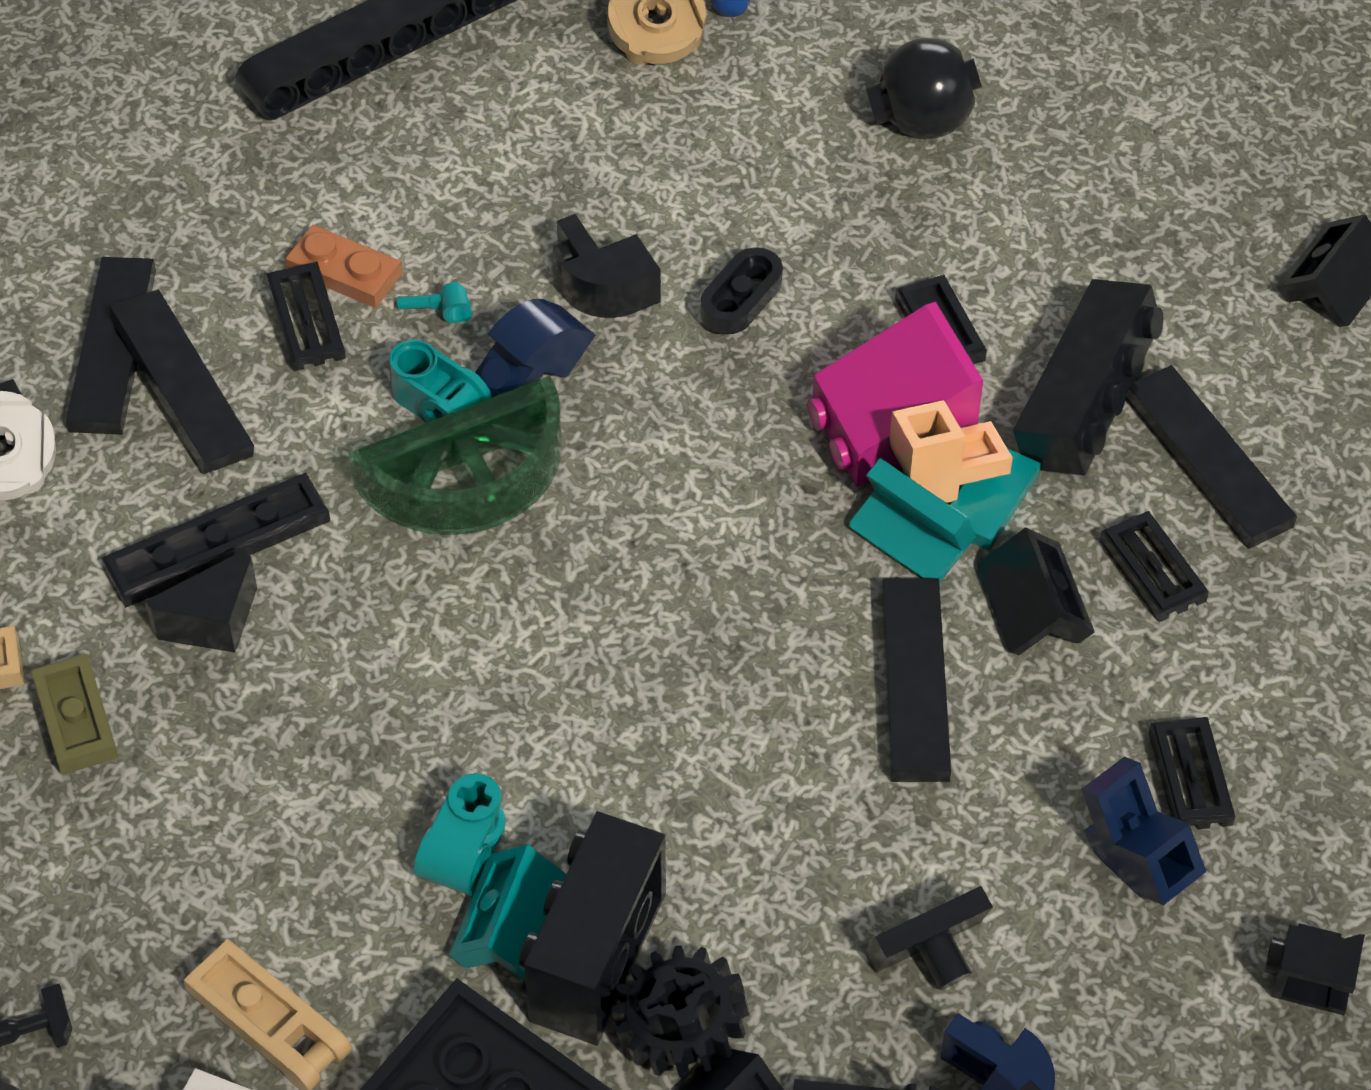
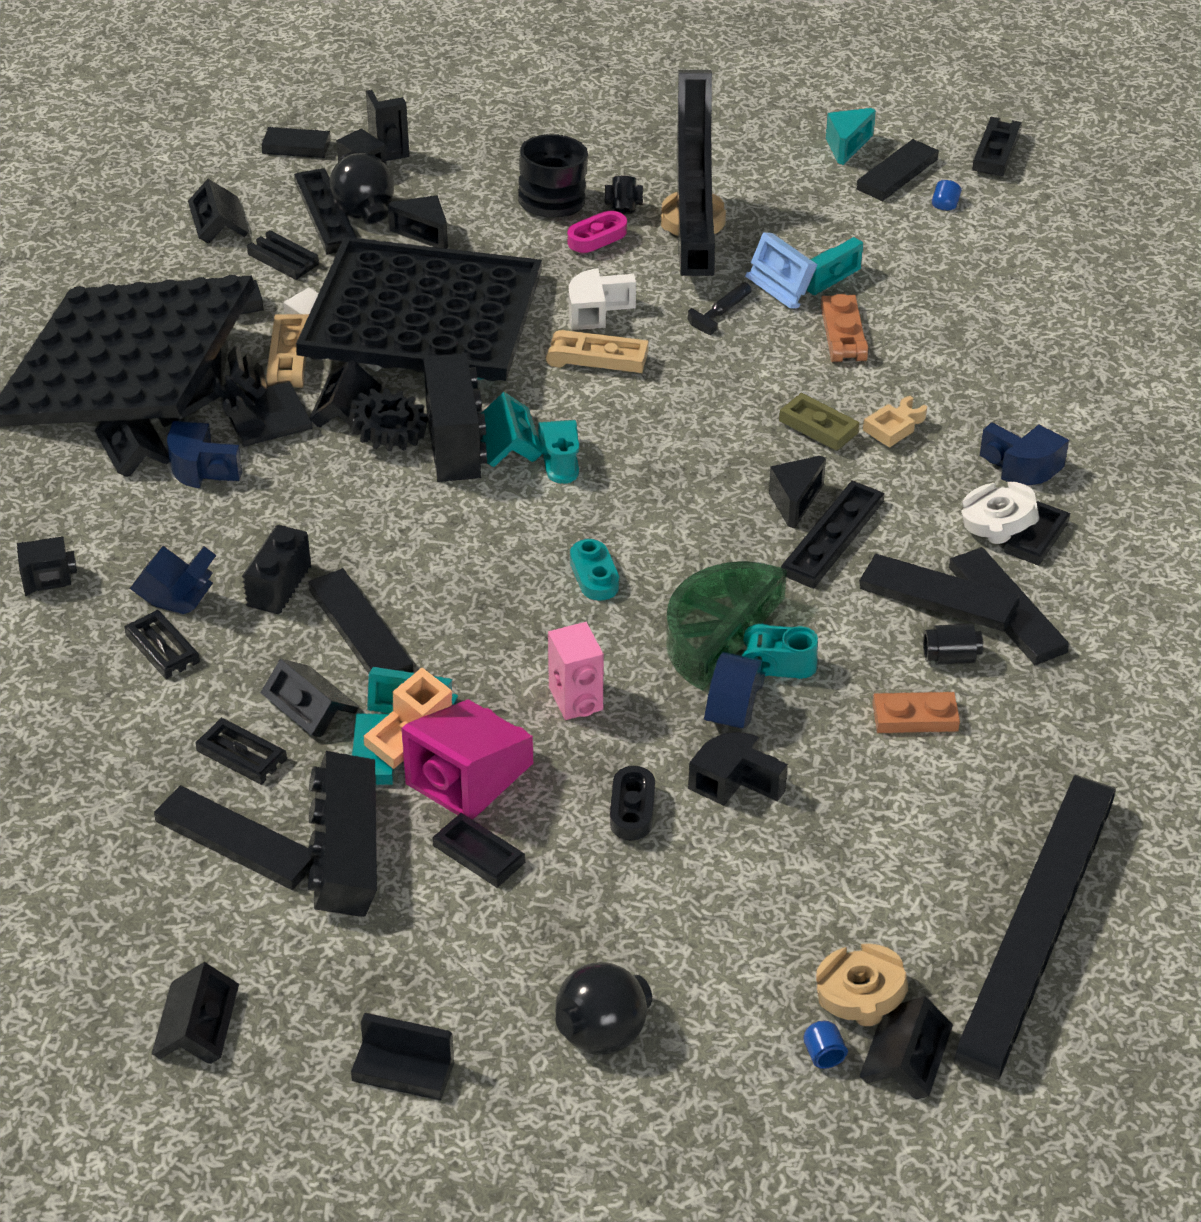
camera: 150 degrees right, 10 degrees down
(233, 308) = (952, 644): none -> black brick
(316, 353) = (900, 667): black tile -> none
(451, 300) = (823, 718): teal hand -> none
(559, 621) = (594, 569): none -> teal plate
(707, 432) = (575, 670): none -> bright pink brick
(933, 938) = (274, 501): black tile -> none
(988, 794) = (277, 569): none -> black brick
(1142, 142) = (404, 1056): none -> black panel

